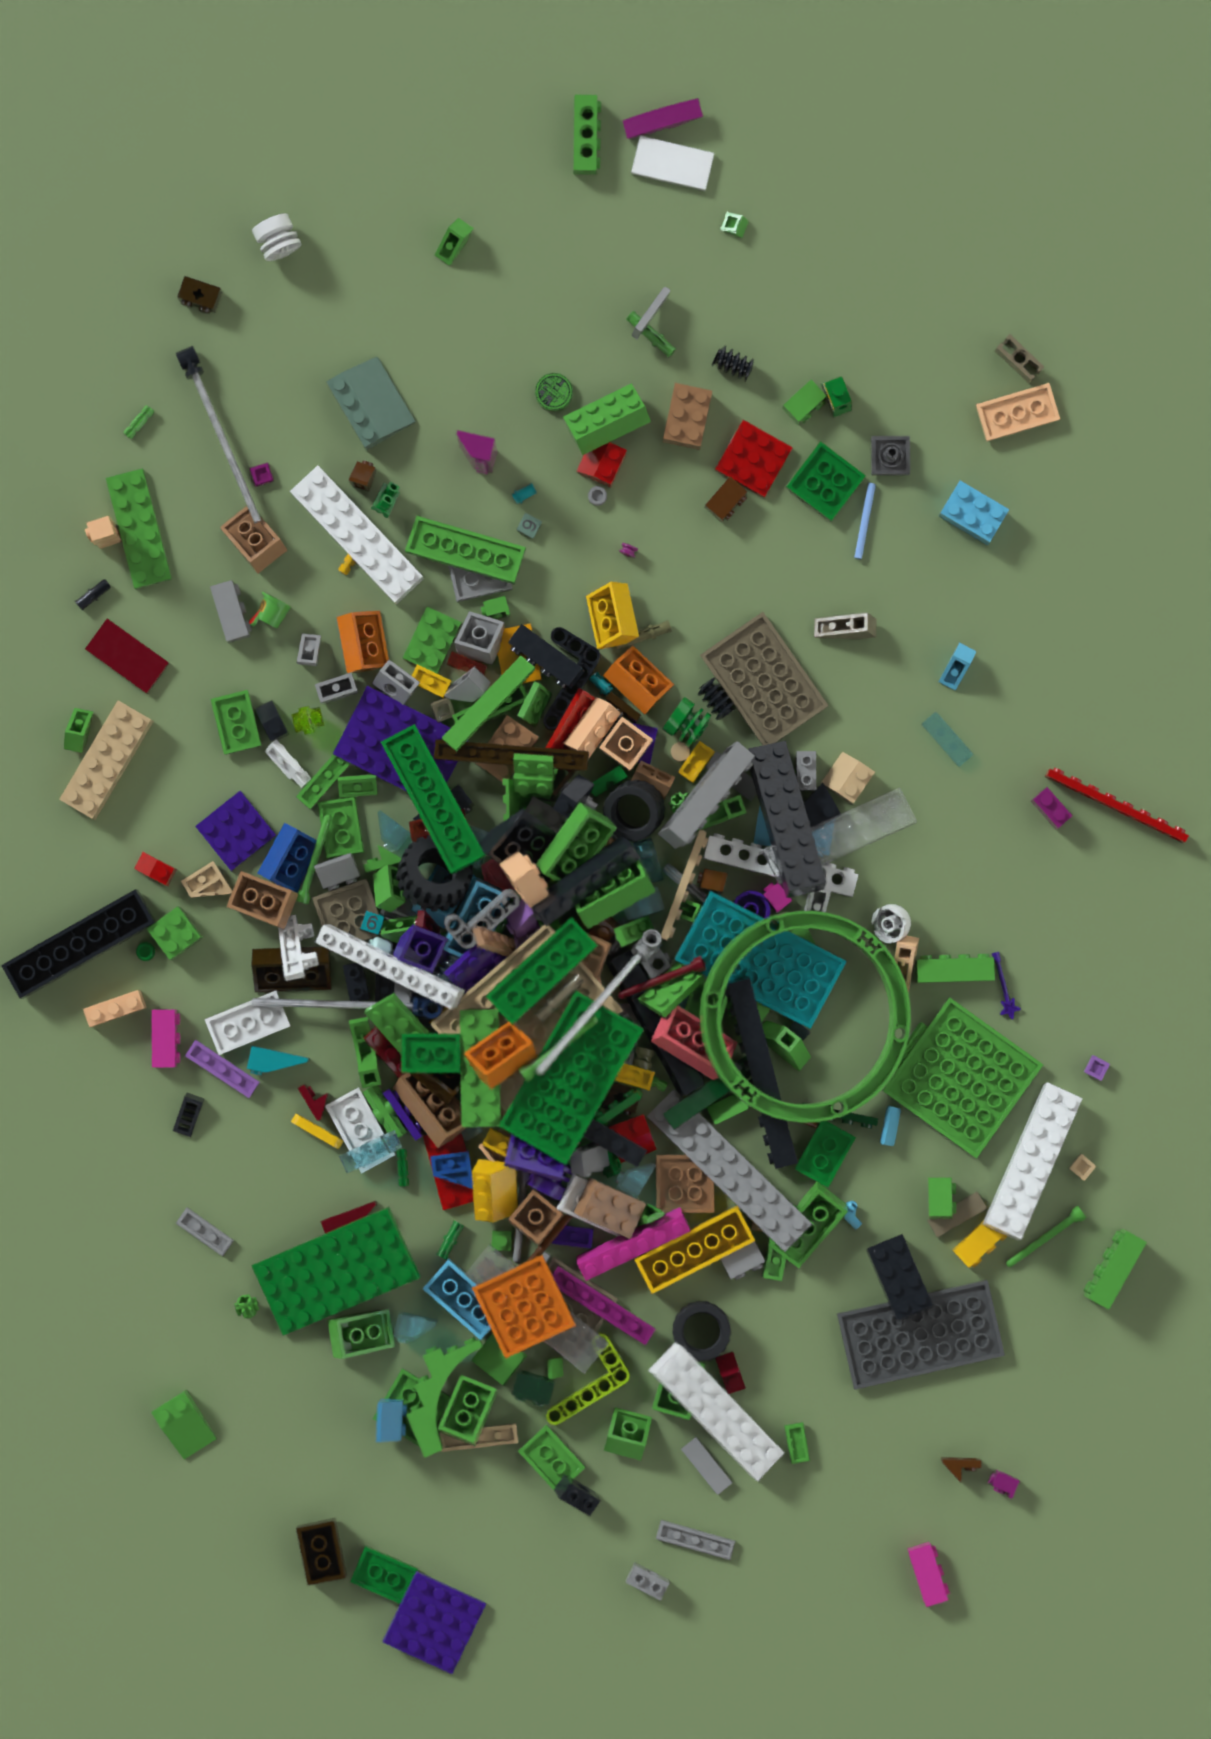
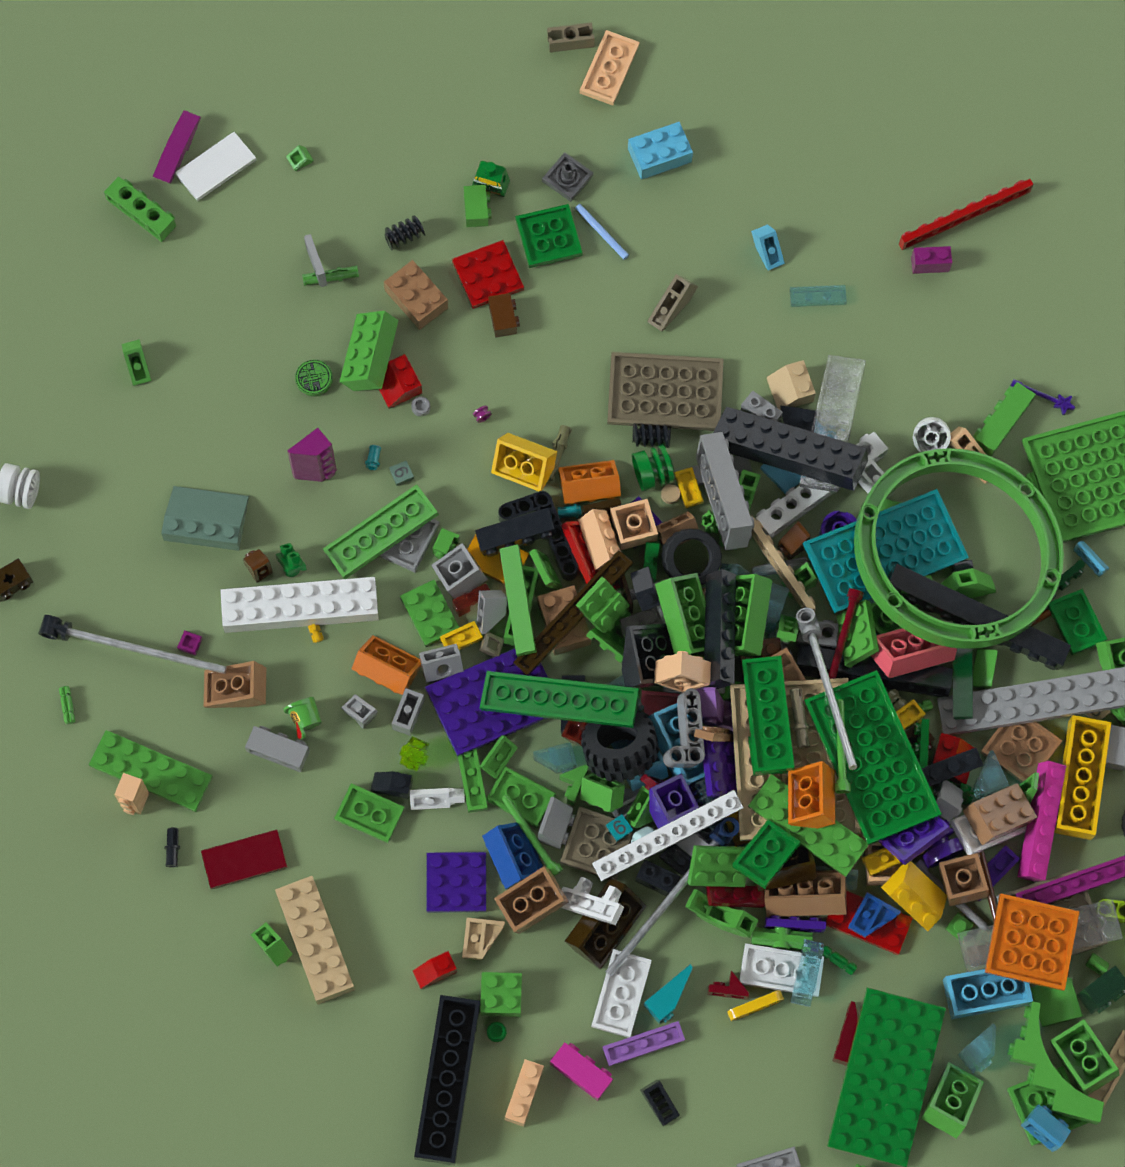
camera: 55 degrees left, 15 degrees down
(450, 1240) = (928, 967): green pin -> none
(776, 896) = (844, 503): dark pink brick -> none

